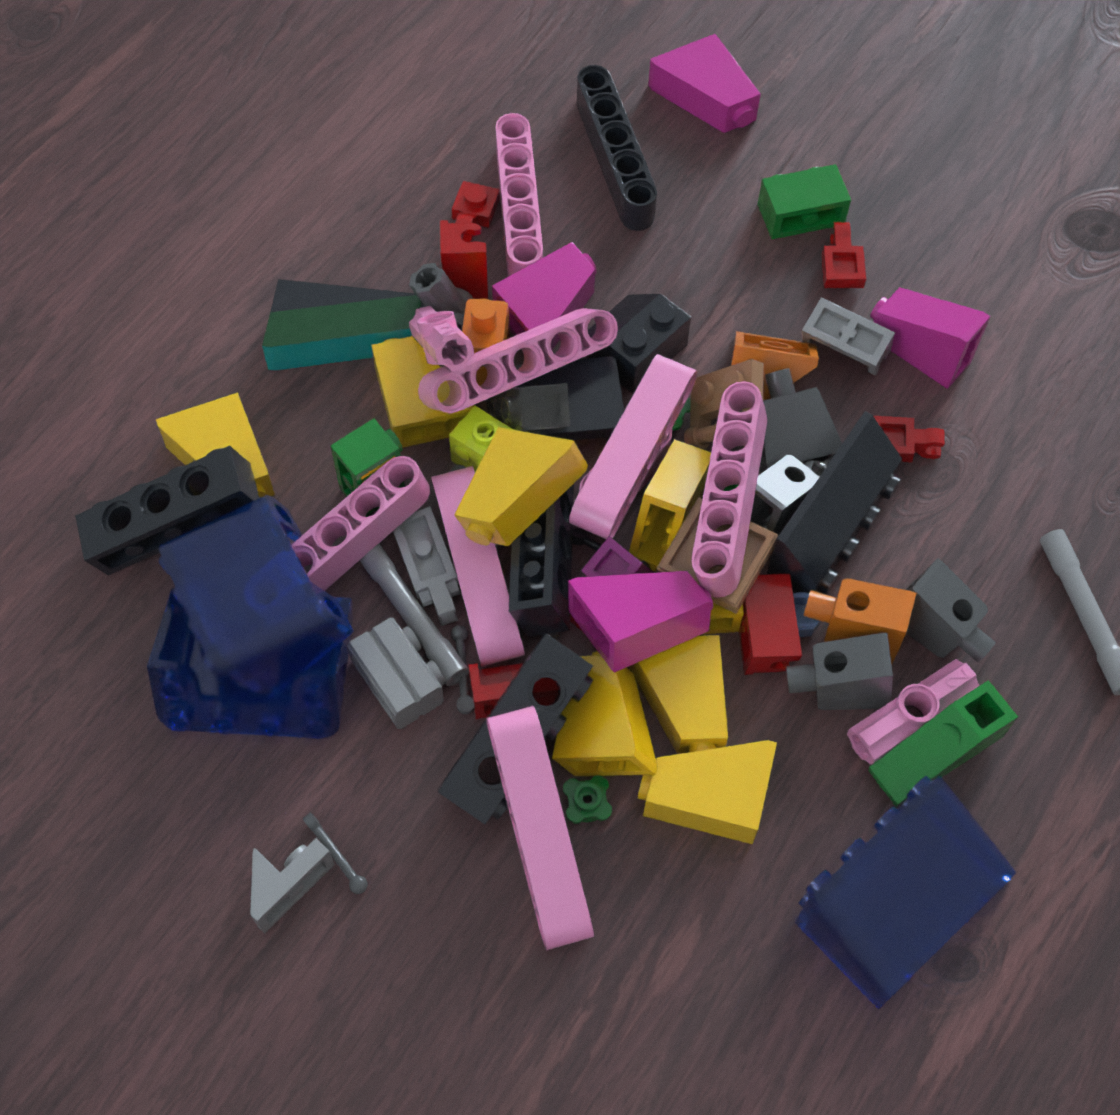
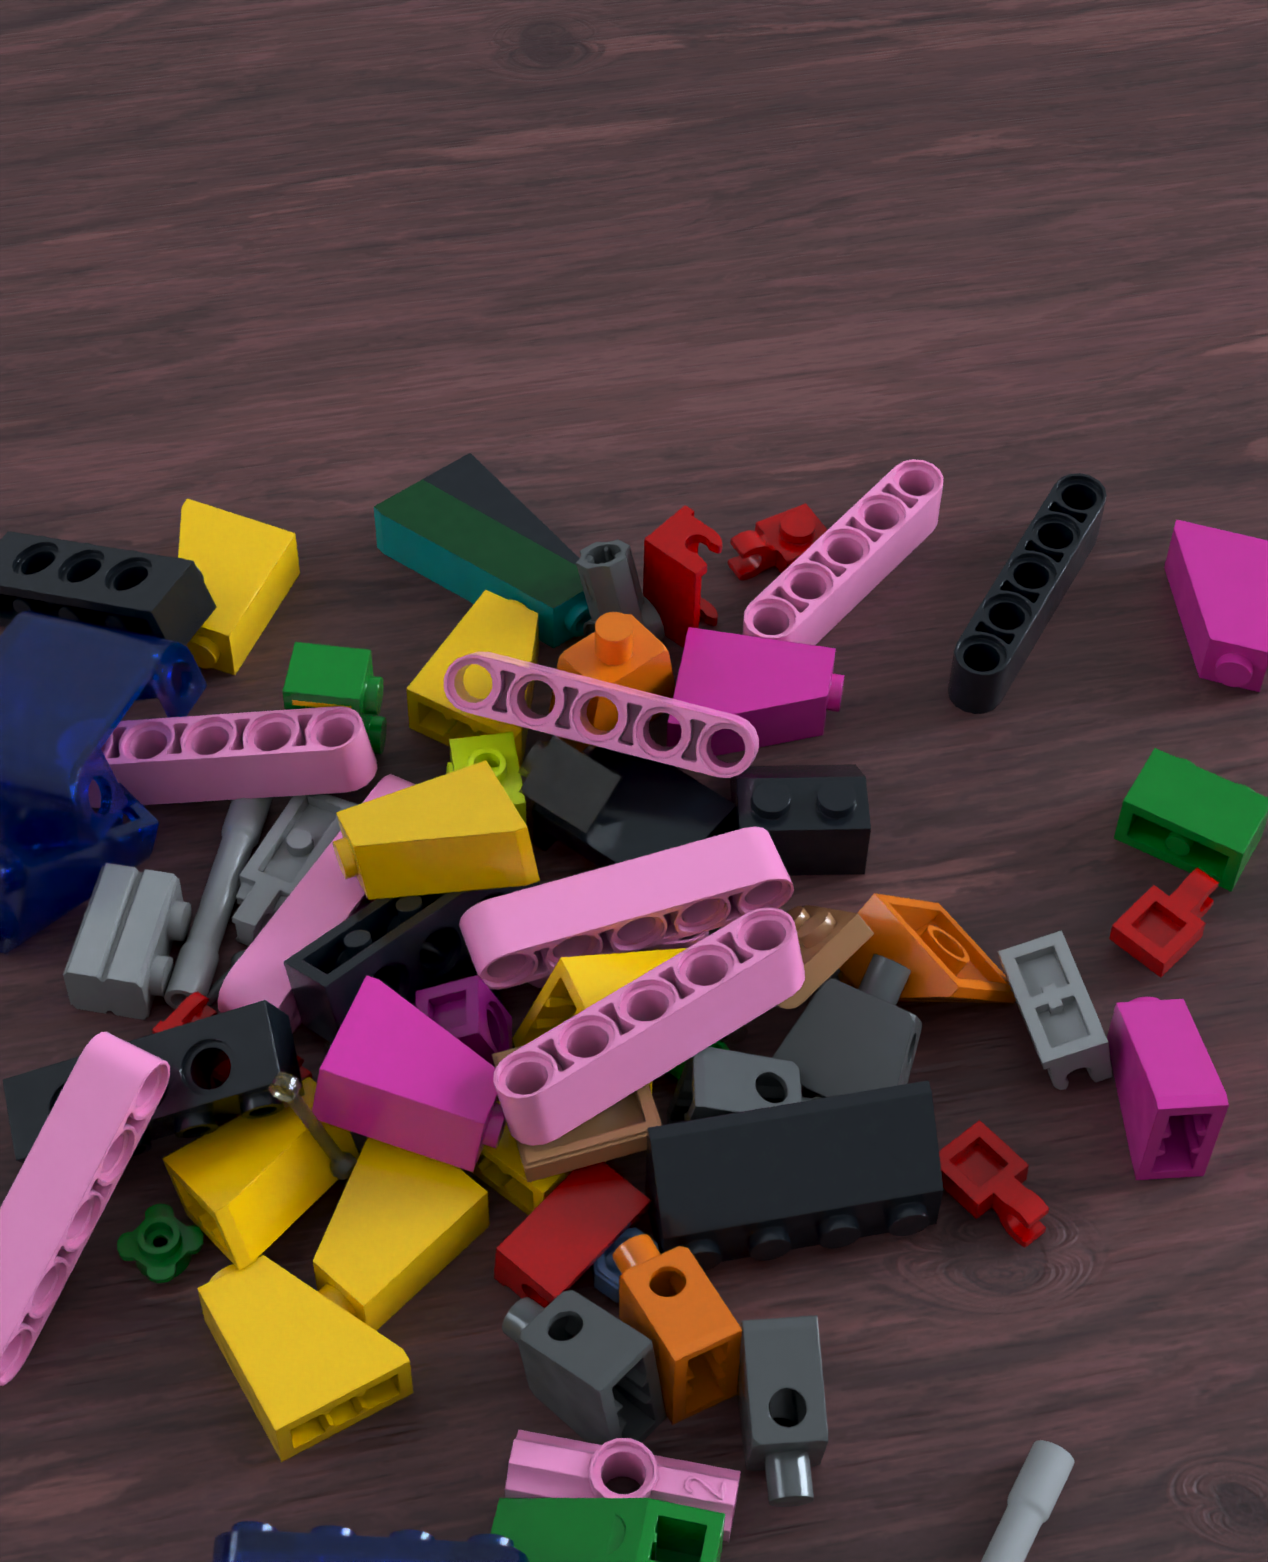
camera: 45 degrees right, 10 degrees down
(441, 338) = (536, 624): bright pink piece -> none
(607, 666) = (287, 1089): none -> clear smoke hinge

